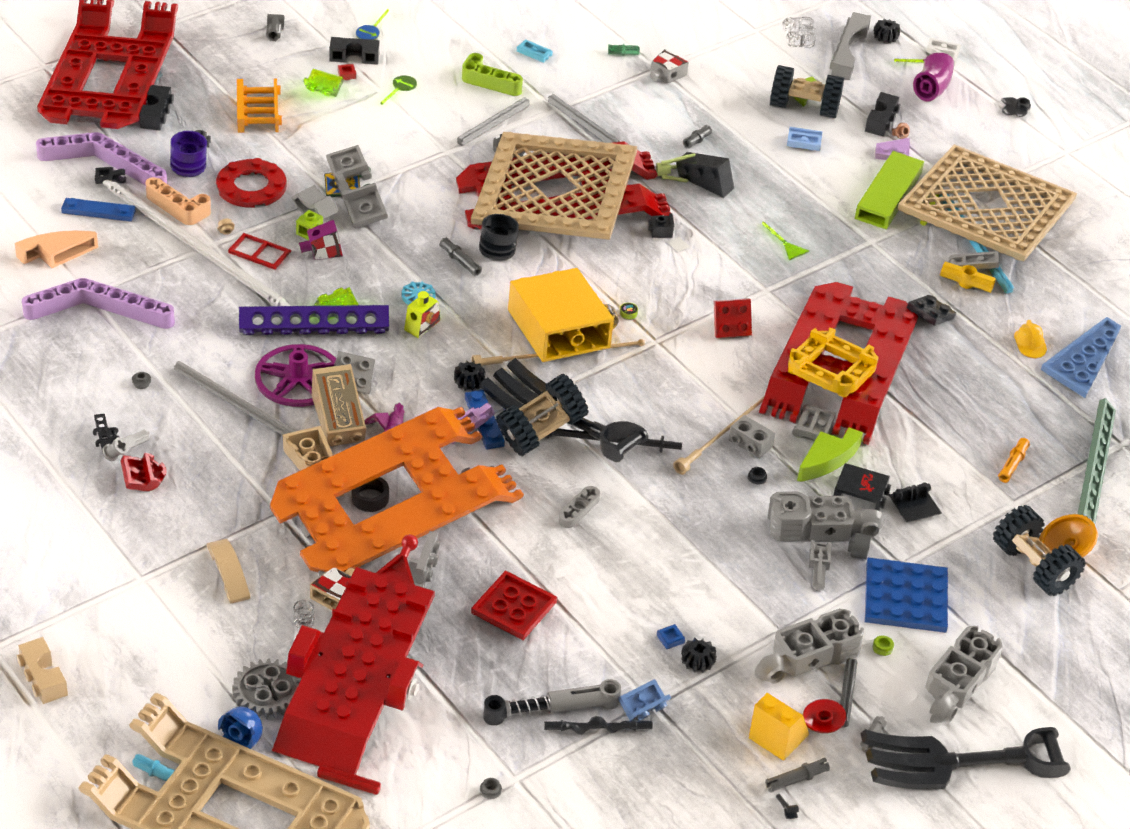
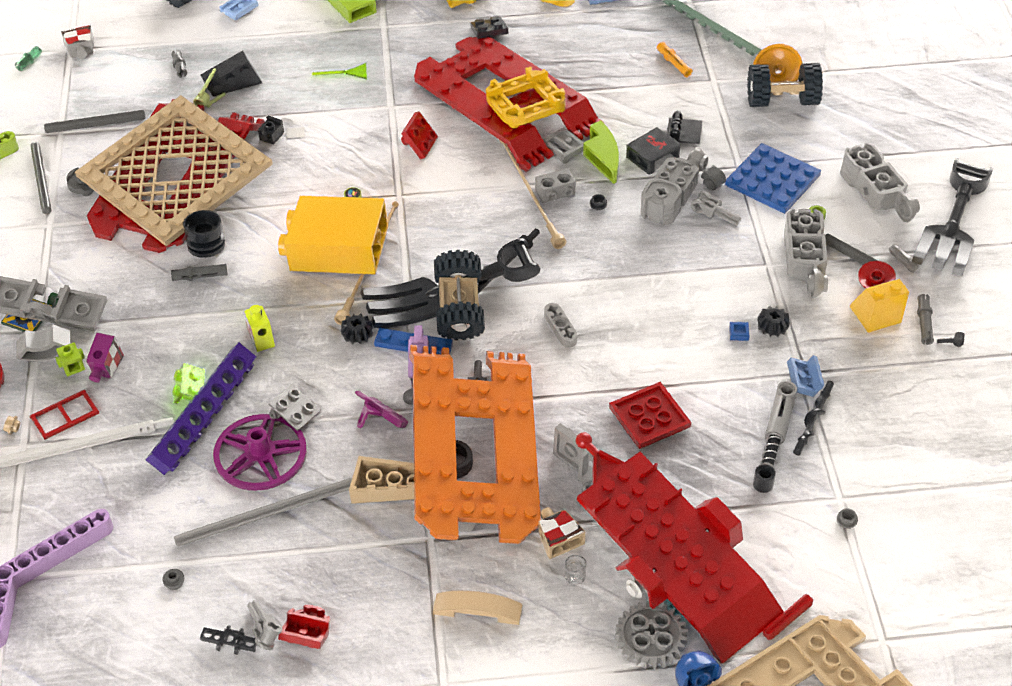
camera: 55 degrees left, 5 degrees up
(338, 405) = (334, 433): slope -> none
(414, 292) = (222, 321): medium azure wheel -> none

